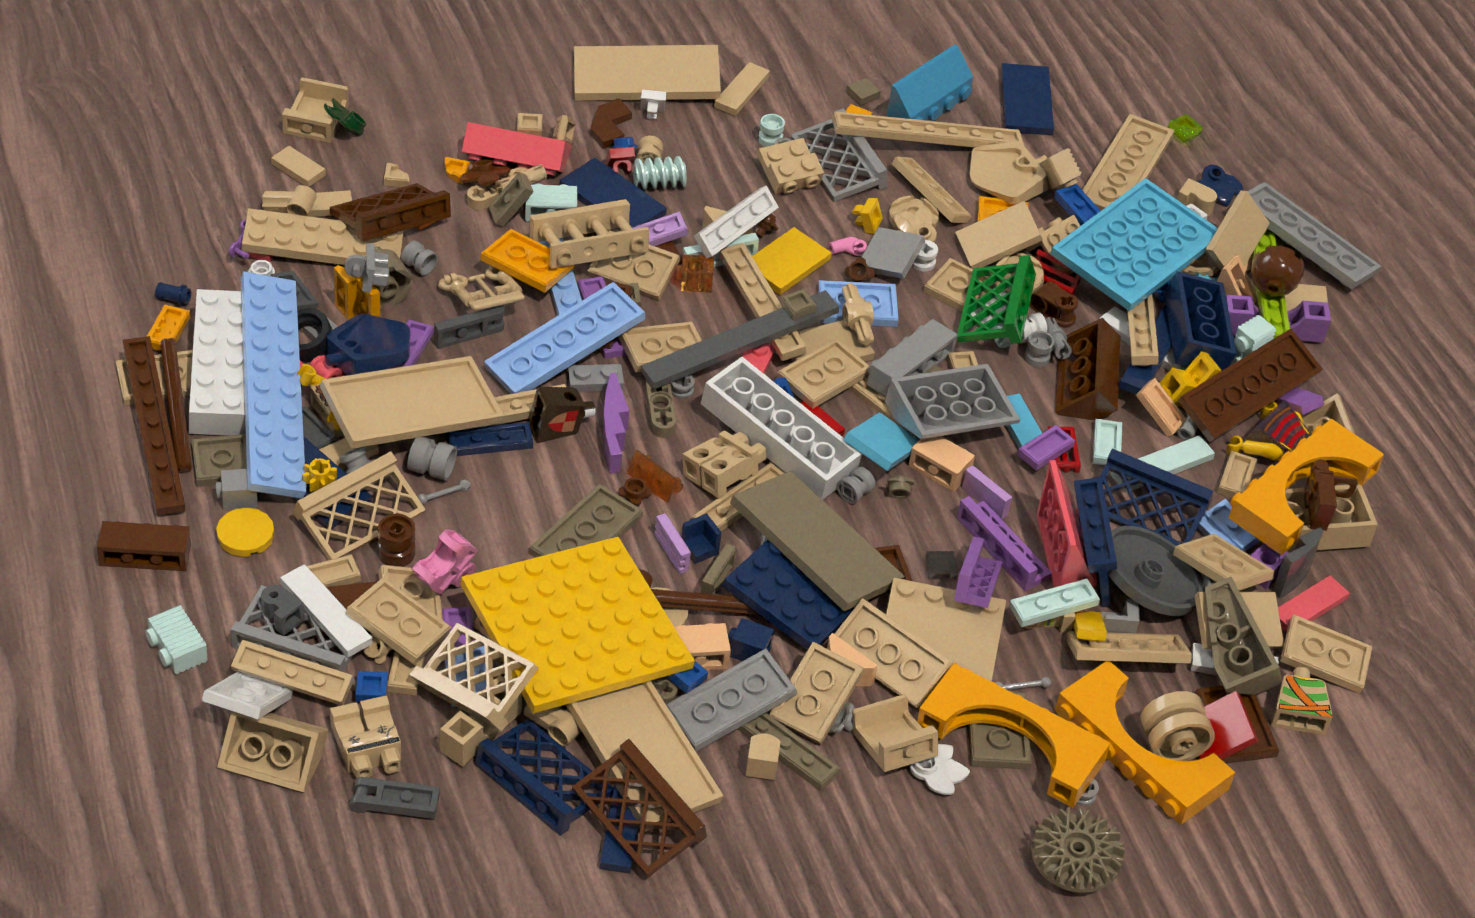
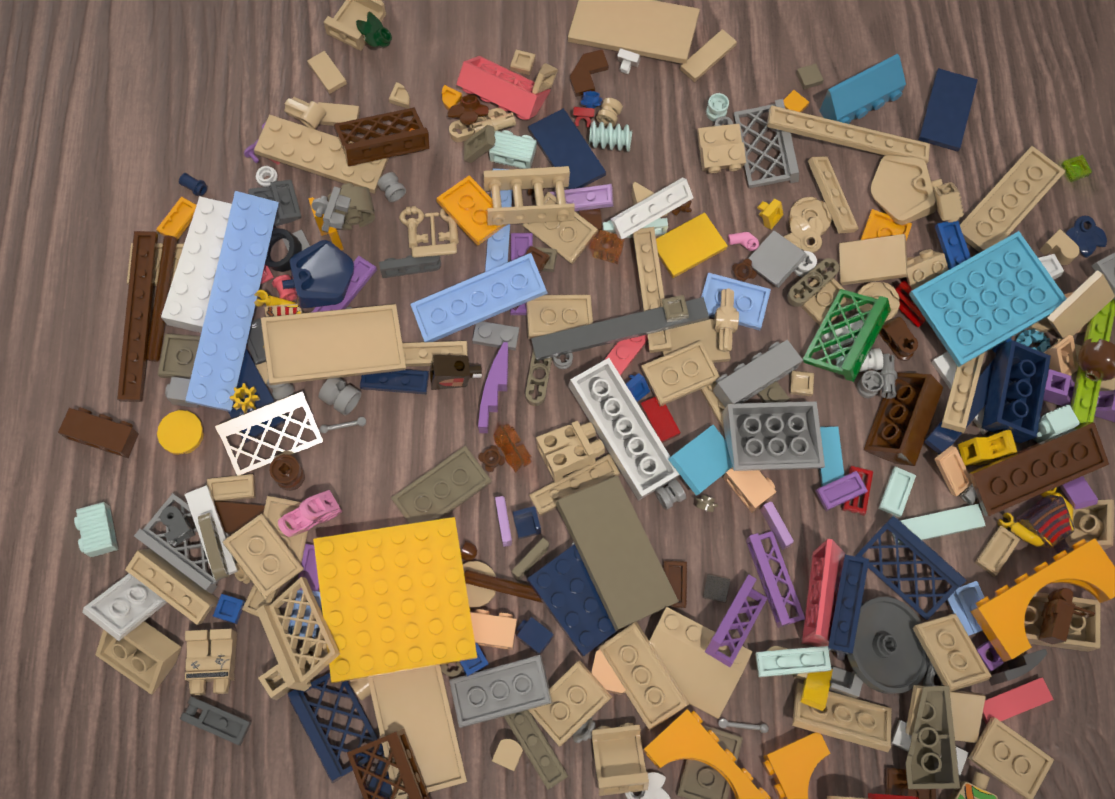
camera: 20 degrees right, 25 degrees up
(338, 613) = (213, 546): none -> dark tan beam
(957, 254) = (814, 273): none -> dark tan beam

